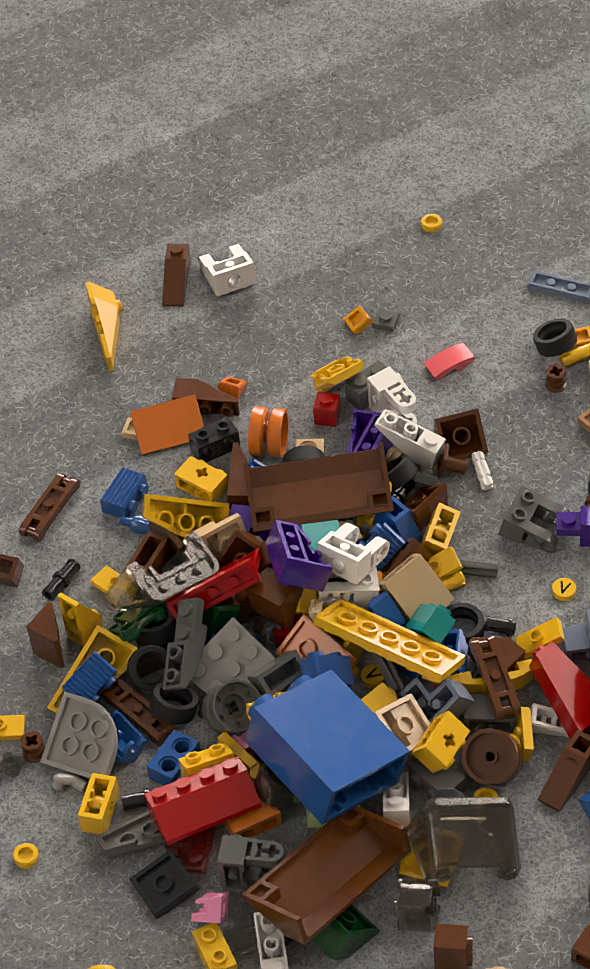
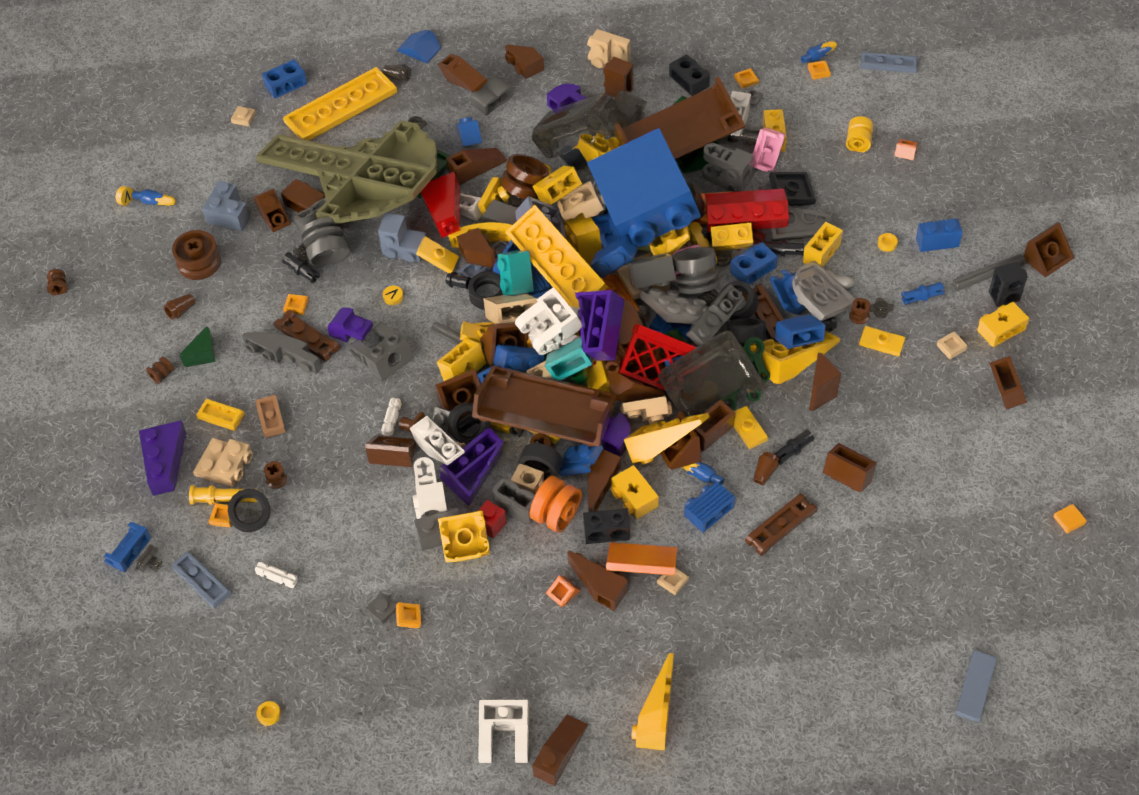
camera: 160 degrees left, 5 degrees up
(78, 619) = (791, 383): yellow slope -> none
(82, 549) = (765, 467): none -> reddish brown cone
(307, 425) = (513, 500): none -> dark grey brick
(452, 358) = (350, 533): coral slope -> none
(495, 677) = (491, 218): reddish brown plate -> none
(496, 311) = (276, 574): none -> white axle
(508, 914) = (564, 95): none -> dark purple brick

